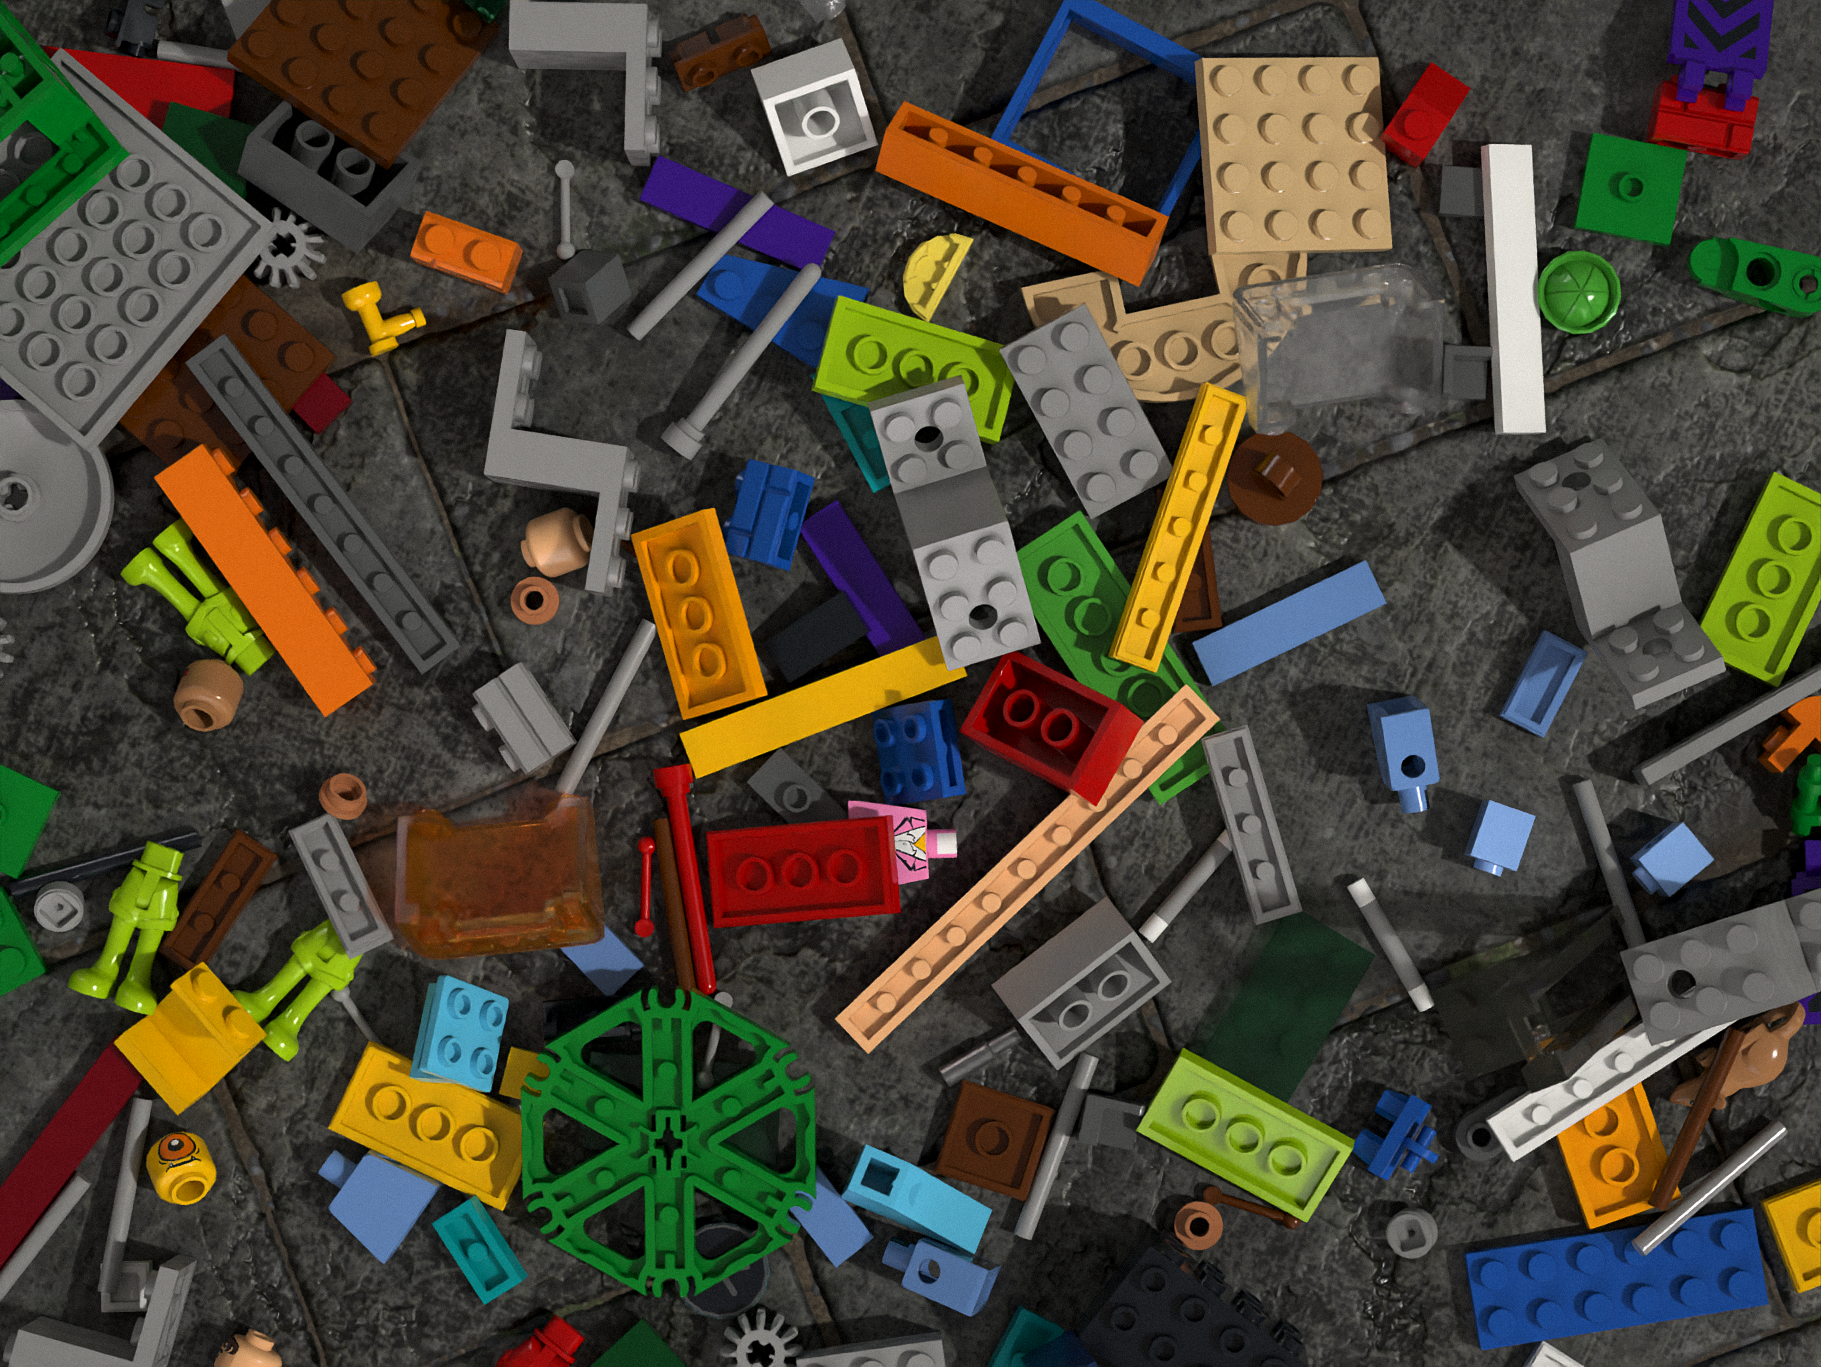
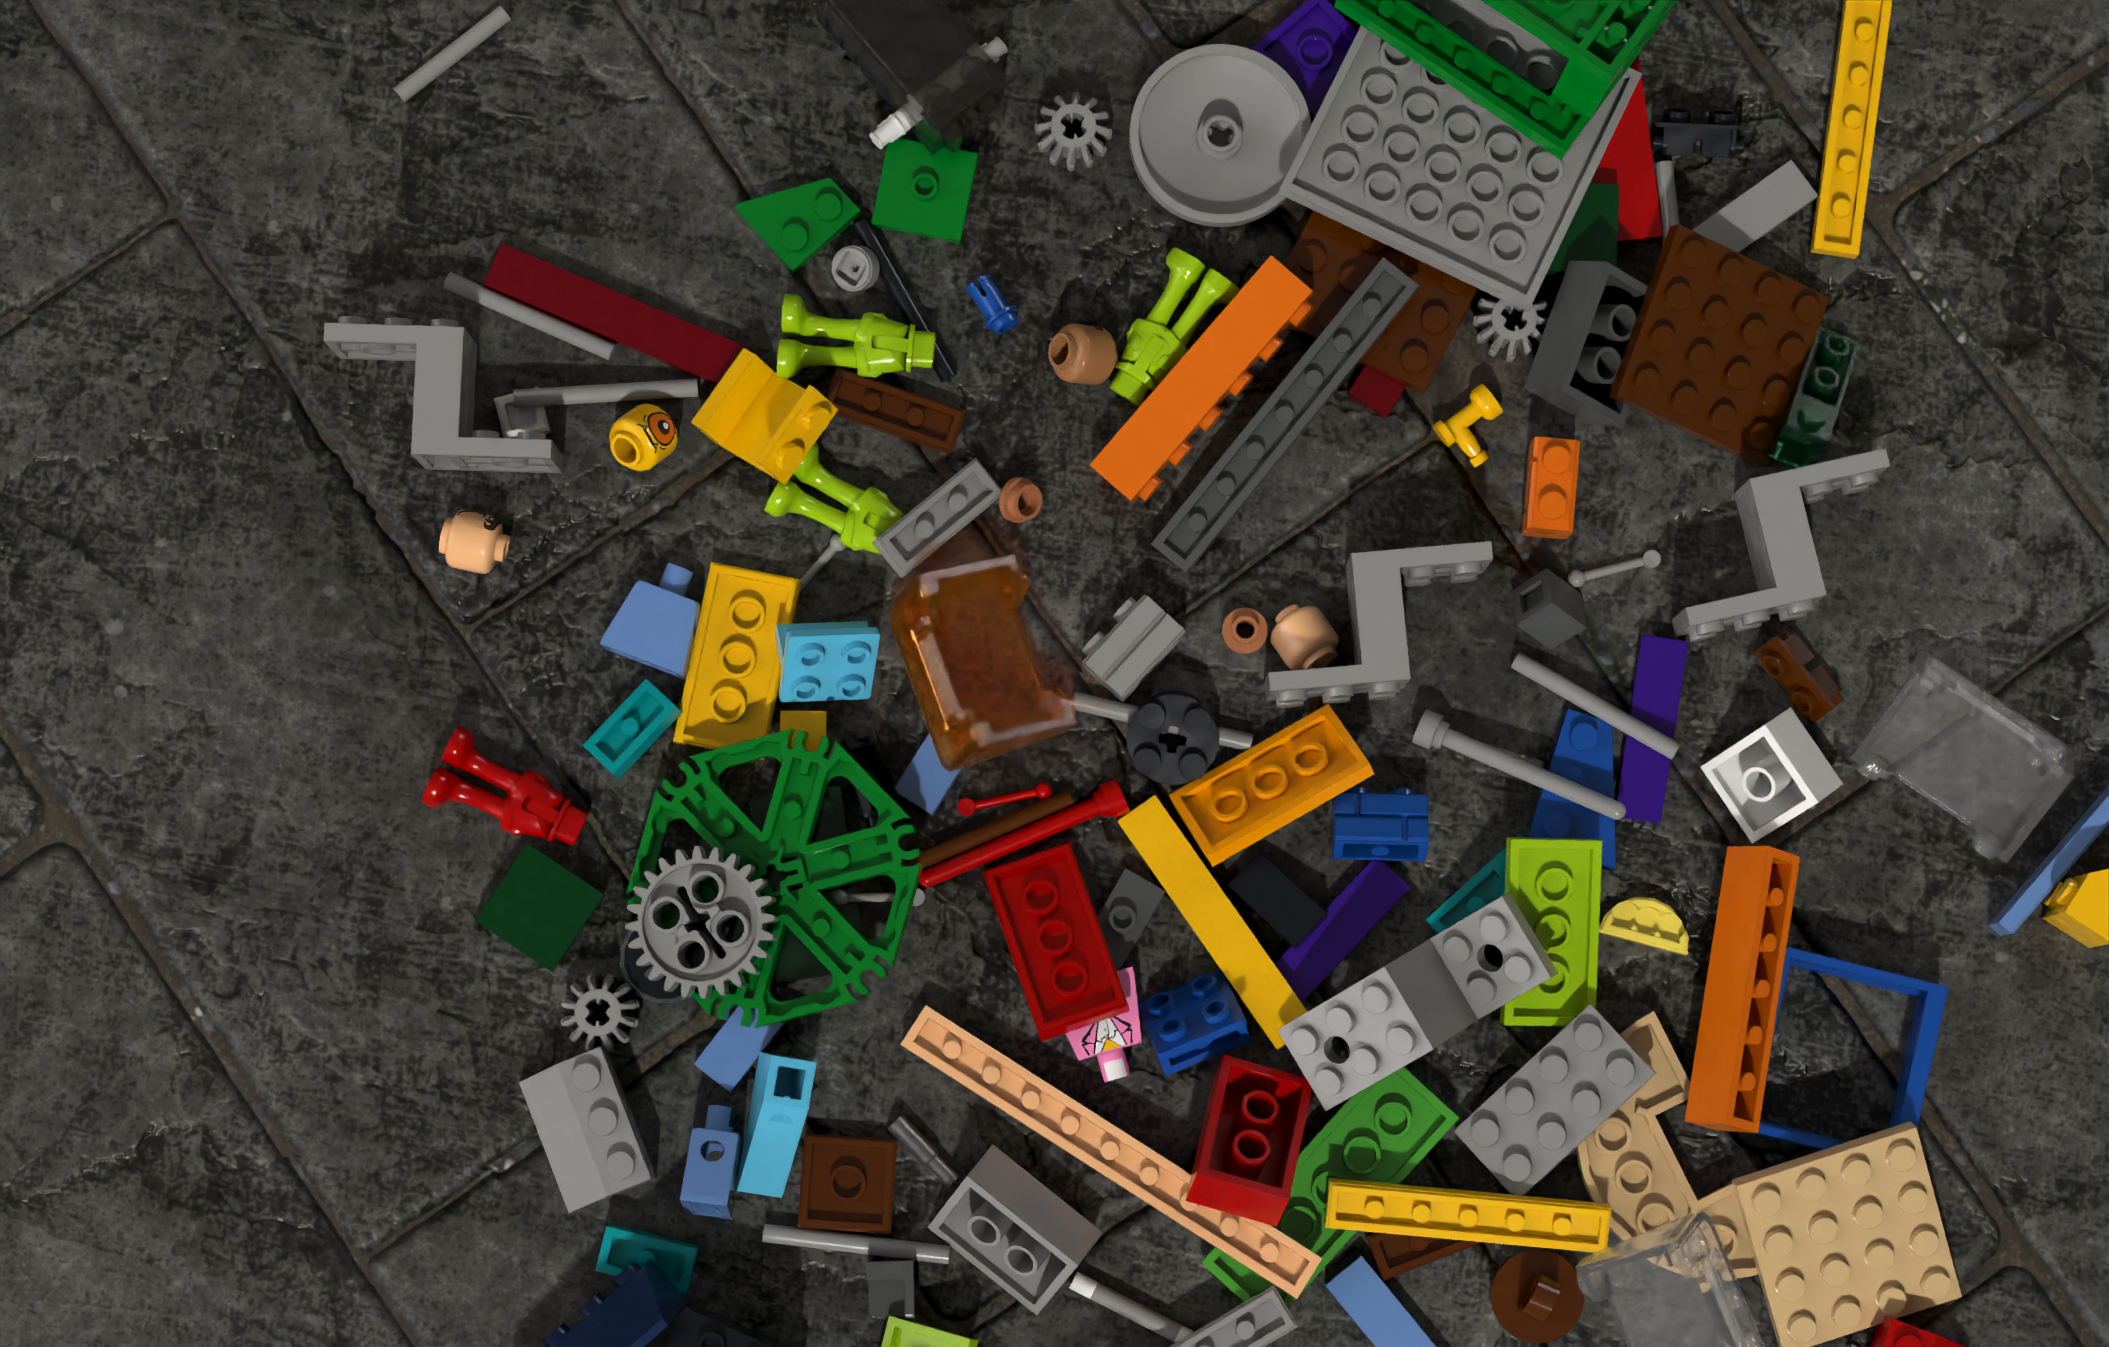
camera: 75 degrees right, 5 degrees down
(135, 773) = (993, 306): none -> blue pin
(638, 726) = (1194, 722): none -> black plate
(712, 1267) = (668, 947): none -> light grey gear

